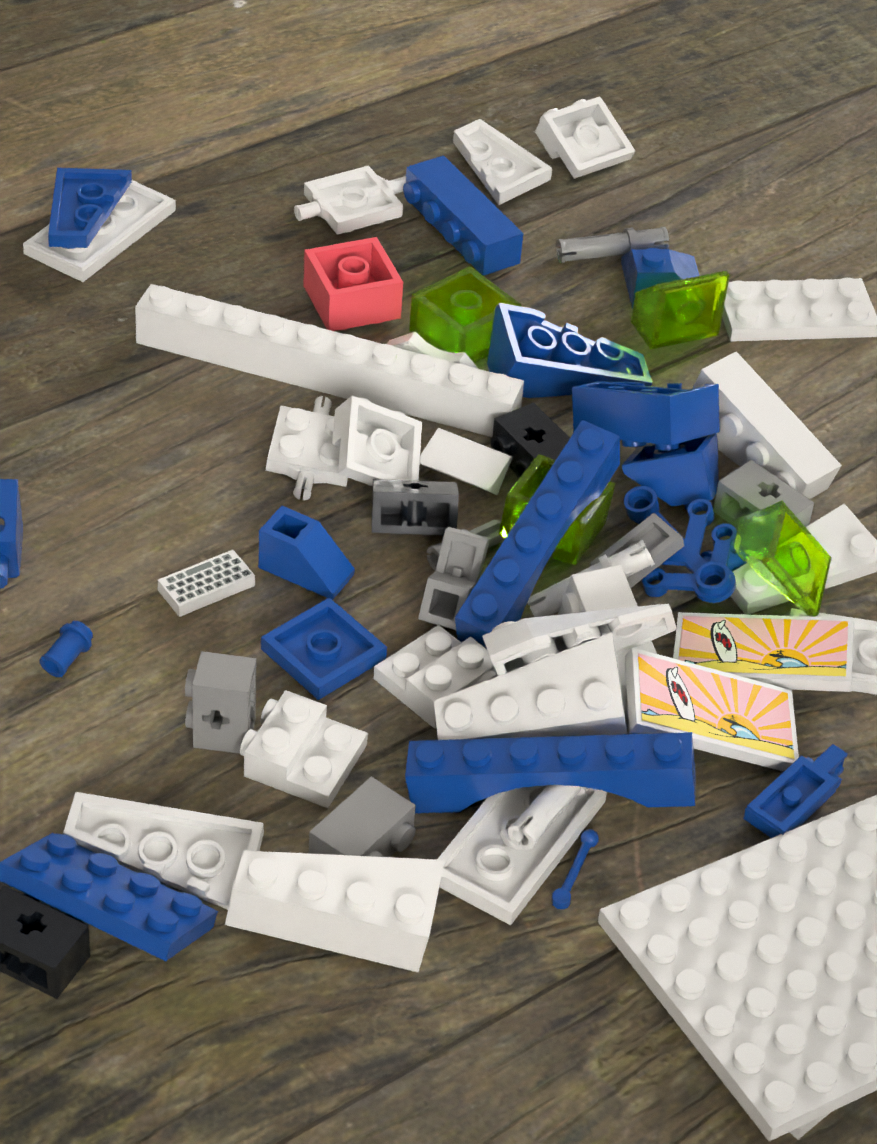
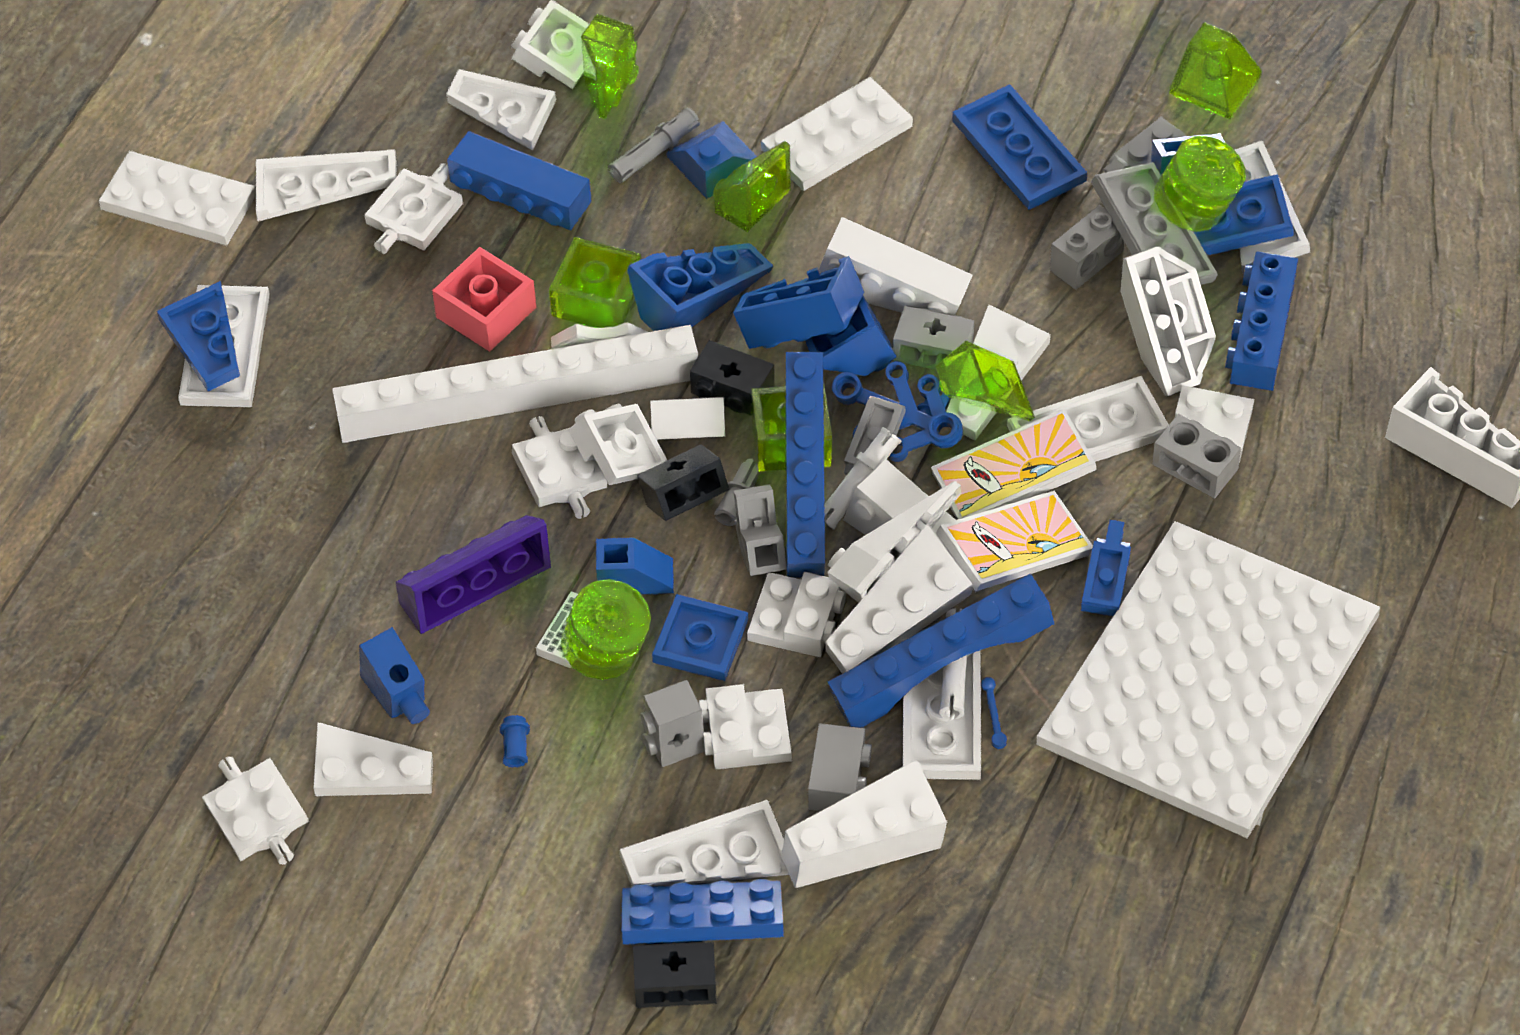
camera: 25 degrees left, 10 degrees up
(151, 489) = (475, 573): none -> dark purple slope
(161, 111) = (177, 198): none -> white plate
(227, 587) = (605, 629): none -> clear neon green wheel
(285, 144) = (315, 180): none -> white wing
(616, 161) = (608, 61): none -> clear neon green slope

